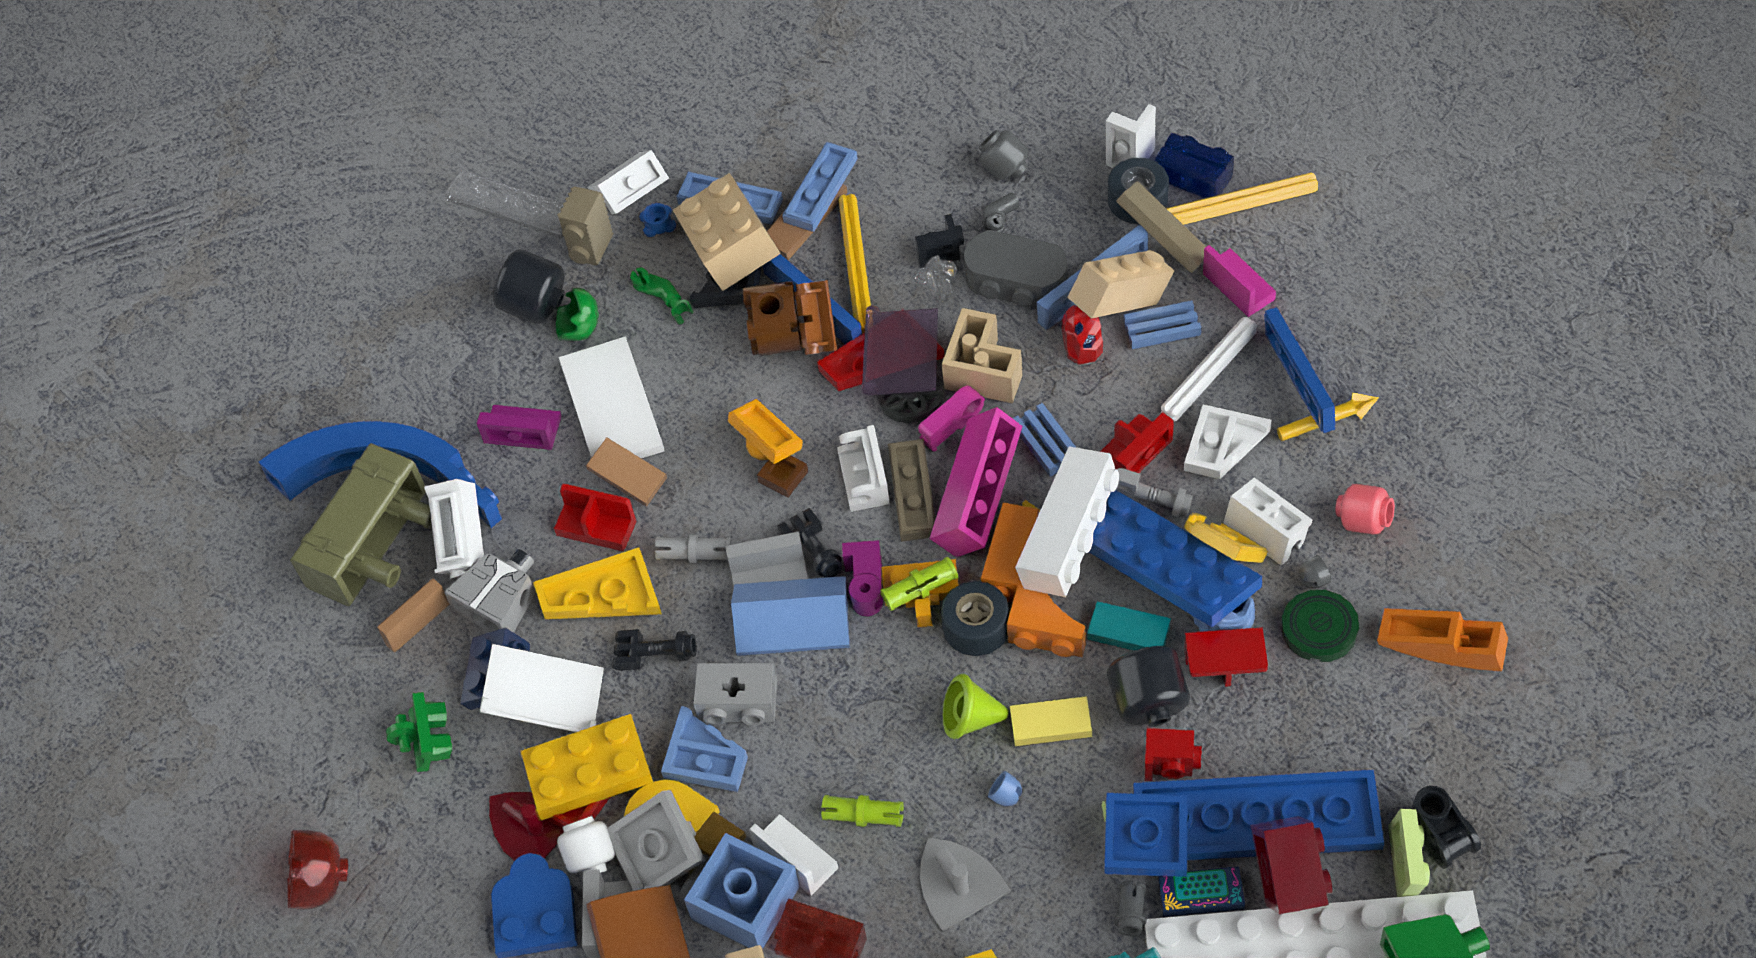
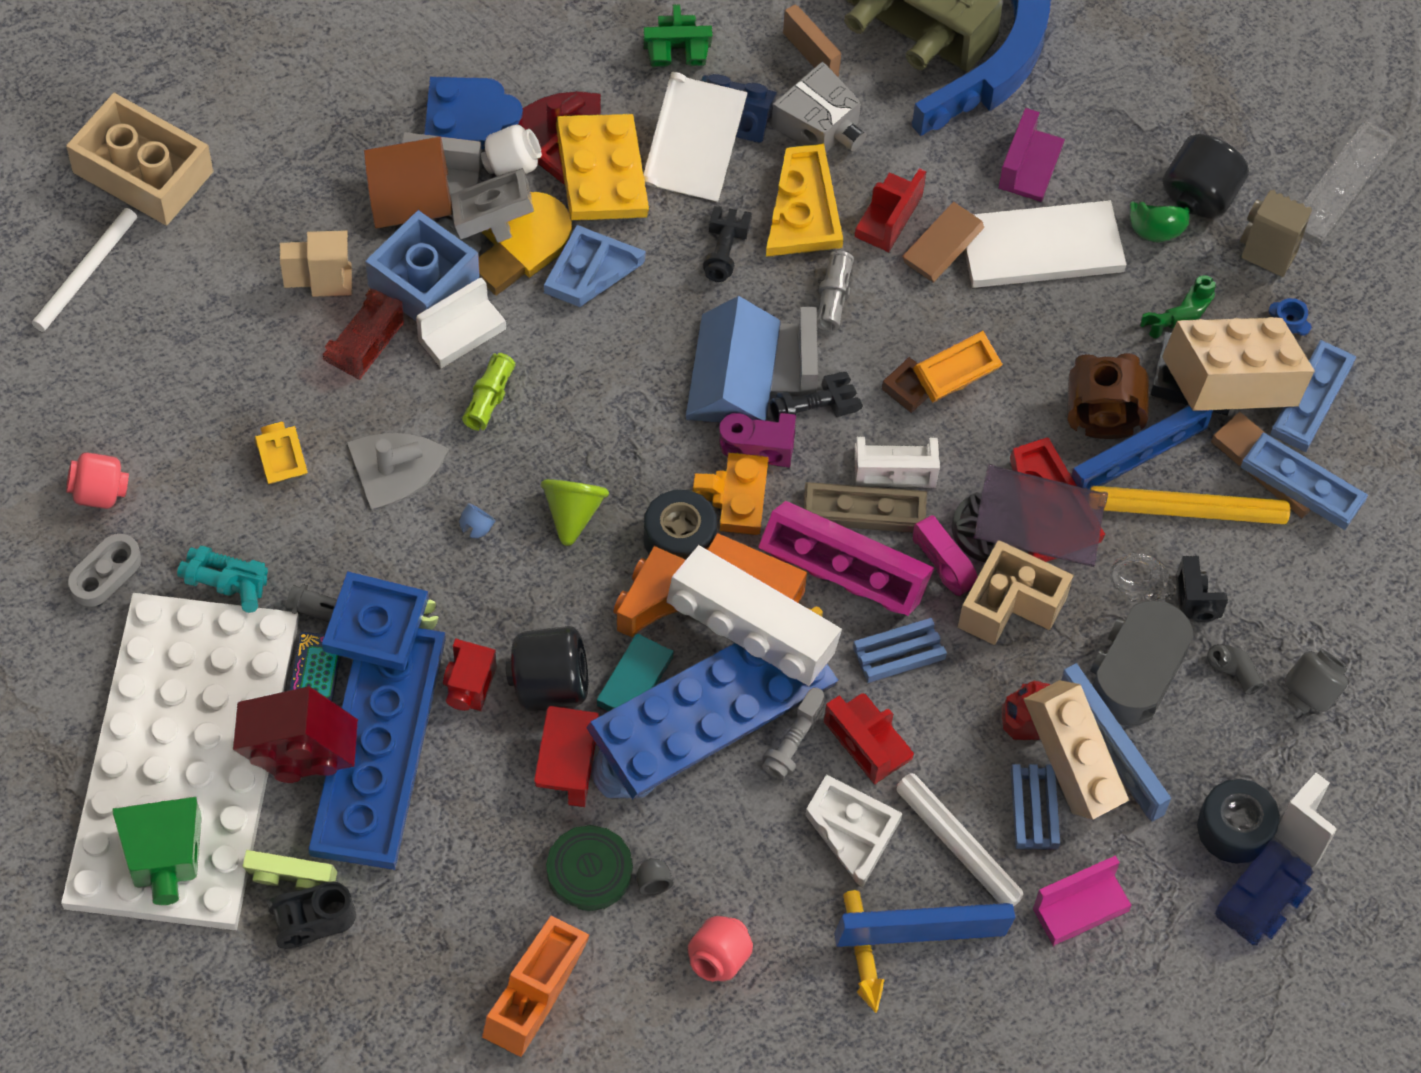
camera: 90 degrees right, 5 degrees up
(455, 526) = (896, 77): white window -> none
(630, 181) = (1351, 294): white panel -> none
(751, 684) = (648, 301): light grey brick -> none
(818, 325) = (1112, 429): dark orange hinge -> none
(919, 583) = (727, 477): lime pin -> none
(1050, 721) = (545, 580): light yellow tile -> none
(1163, 226) = (1165, 825): dark tan tile -> none
(1225, 539) = (709, 784): yellow tile -> none
(1245, 198) = (1207, 934): yellow axle -> none
(1267, 520) = (730, 840): white hinge -> none

